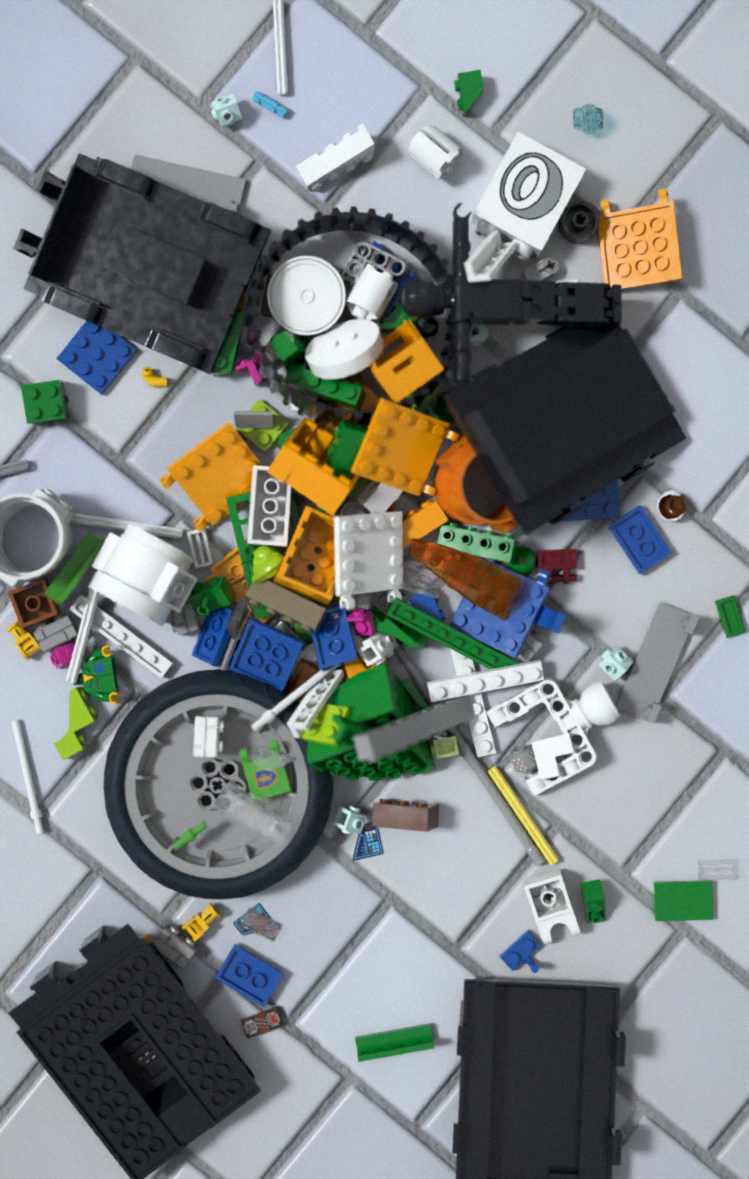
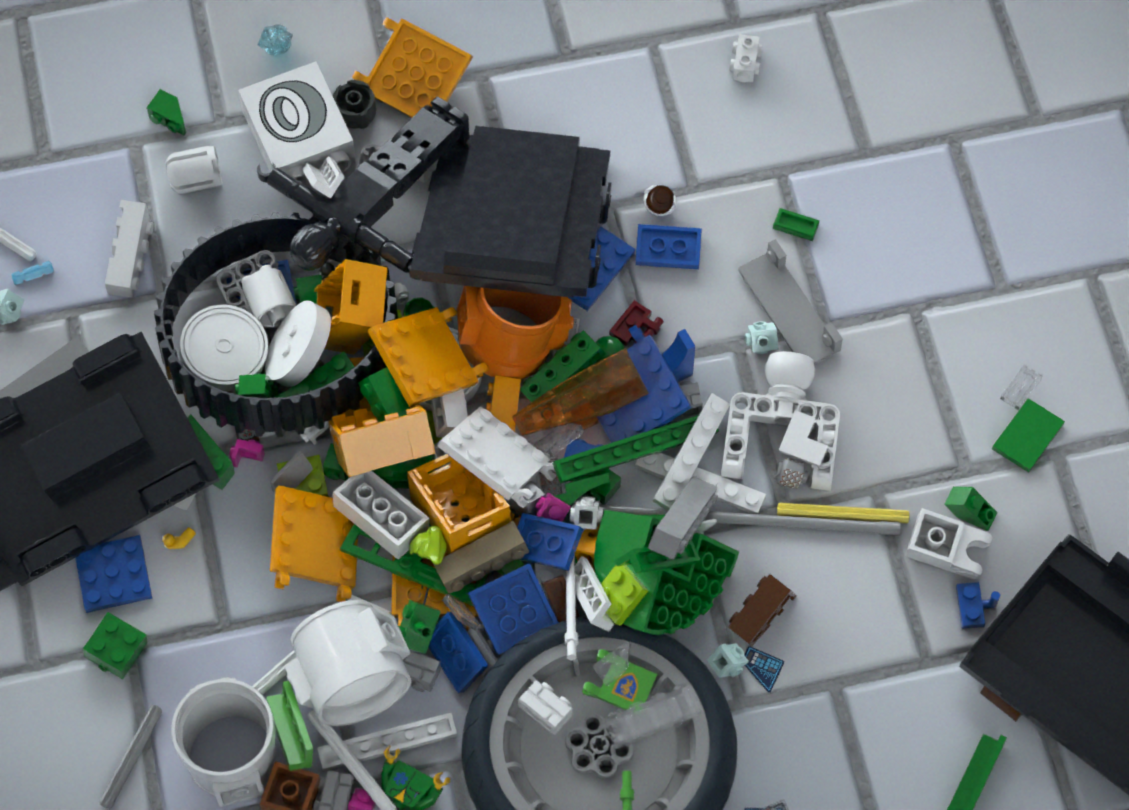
camera: 50 degrees left, 25 degrees down
(445, 747) = (725, 528): yellowish green bracket -> none

